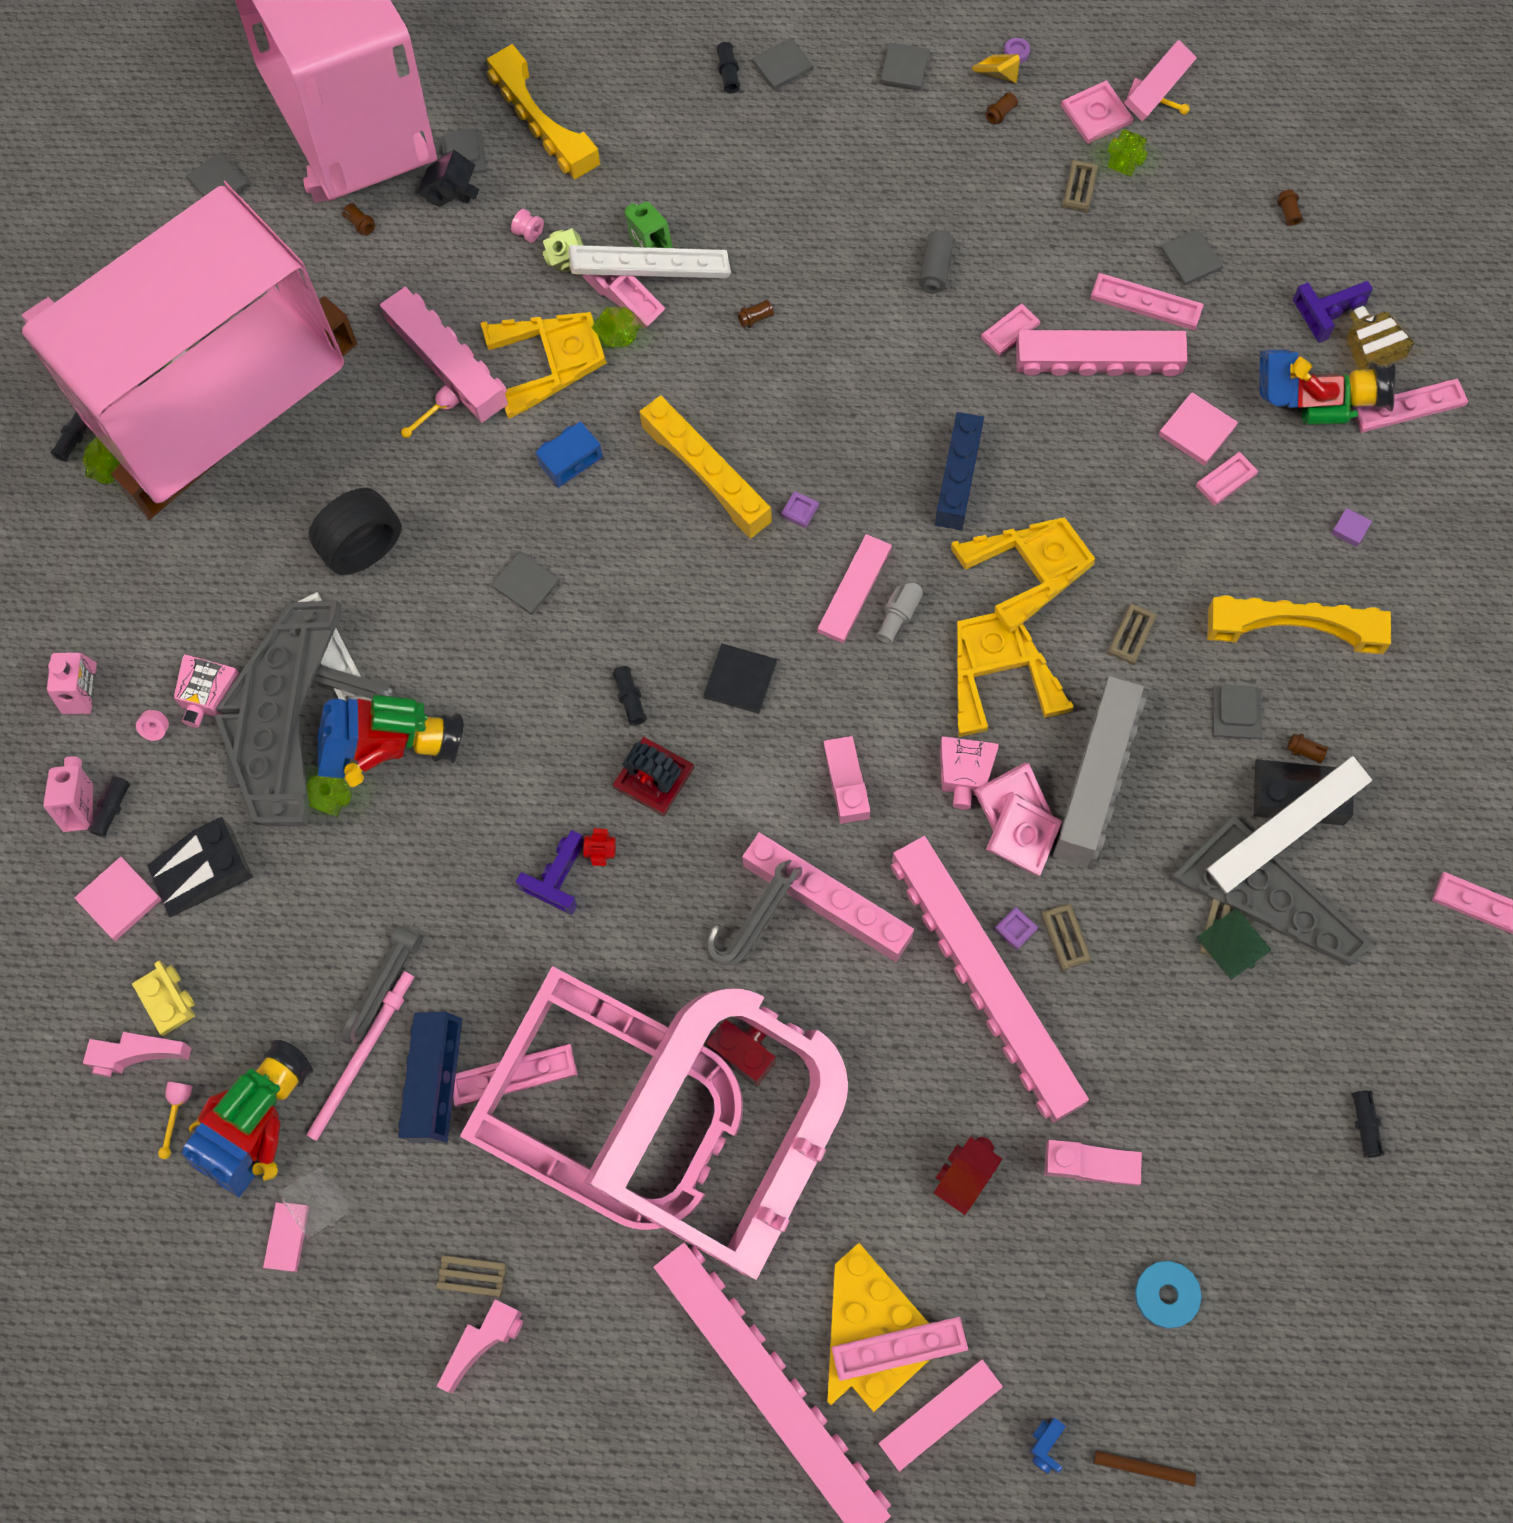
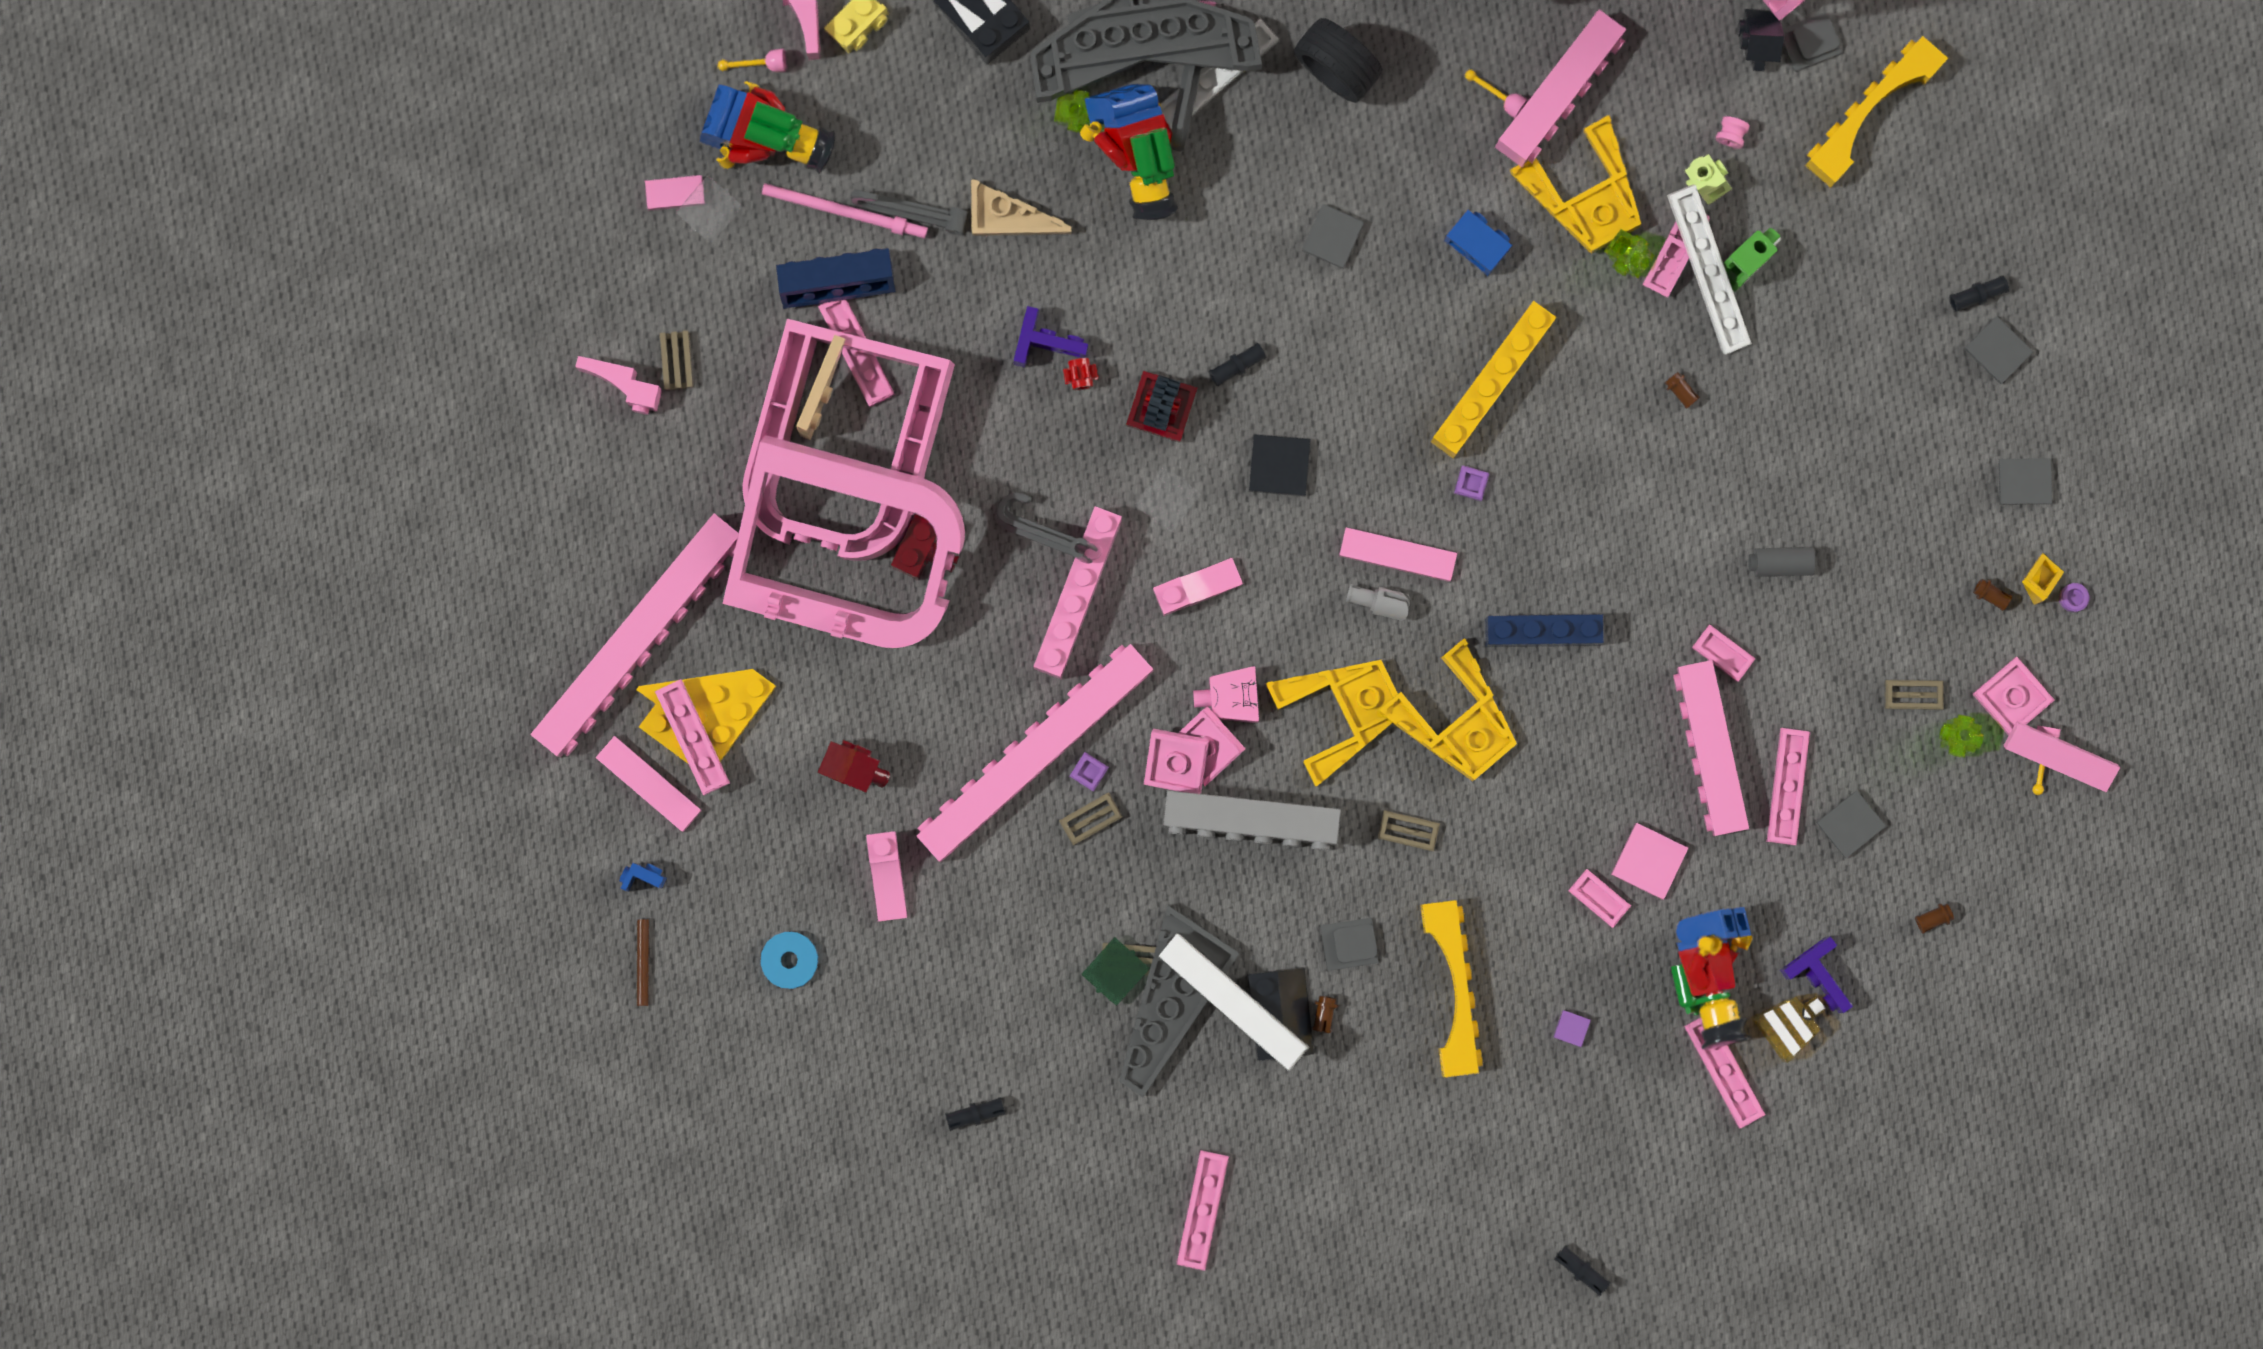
camera: 75 degrees right, 15 degrees up
(412, 894) = (1001, 215): none -> tan wing
(549, 1115) = (820, 391): none -> tan wing

